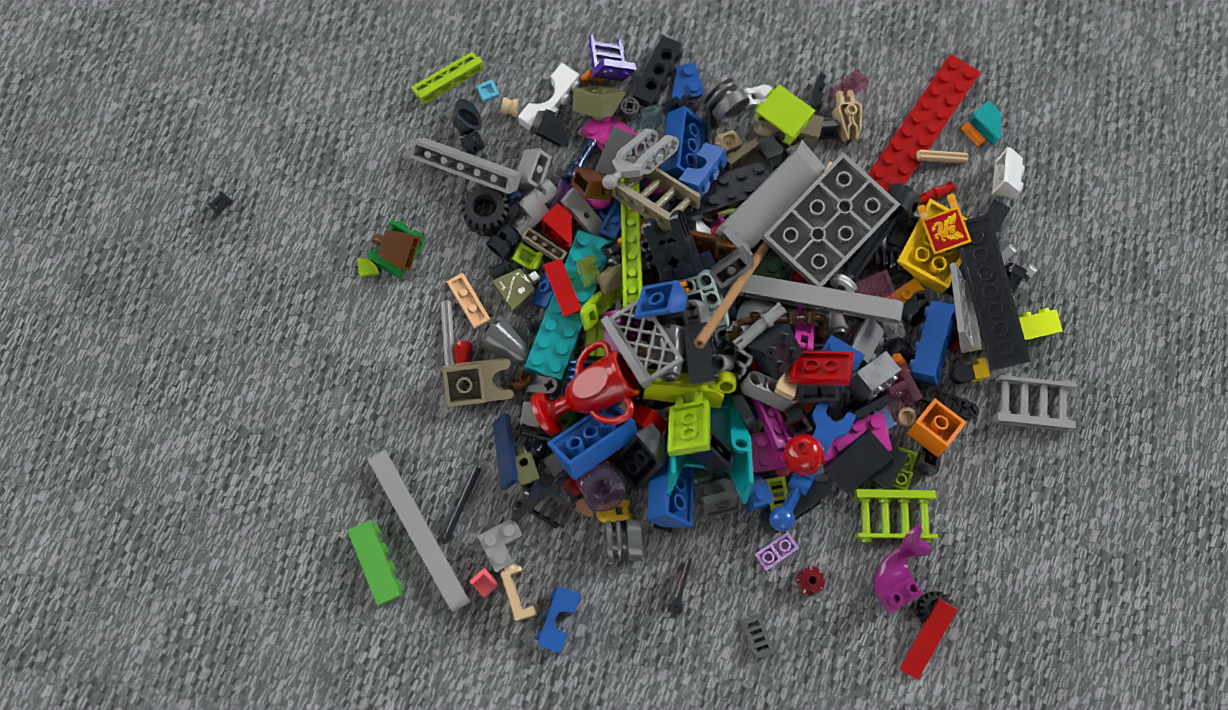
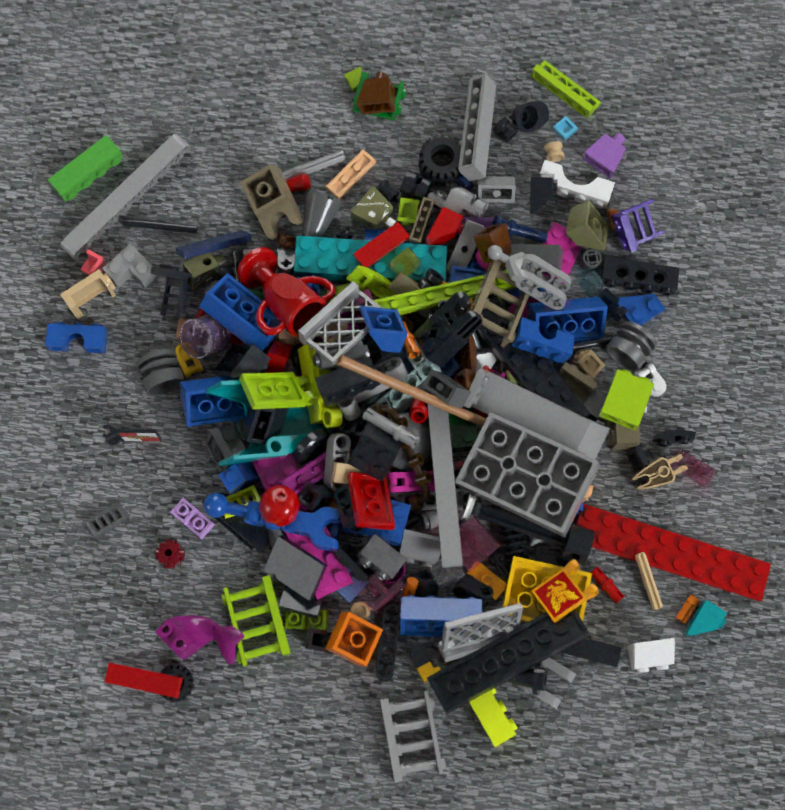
camera: 75 degrees right, 0 degrees up
(528, 62) = (606, 154): none -> medium lavender torso
(743, 301) = (418, 411): none -> red cone

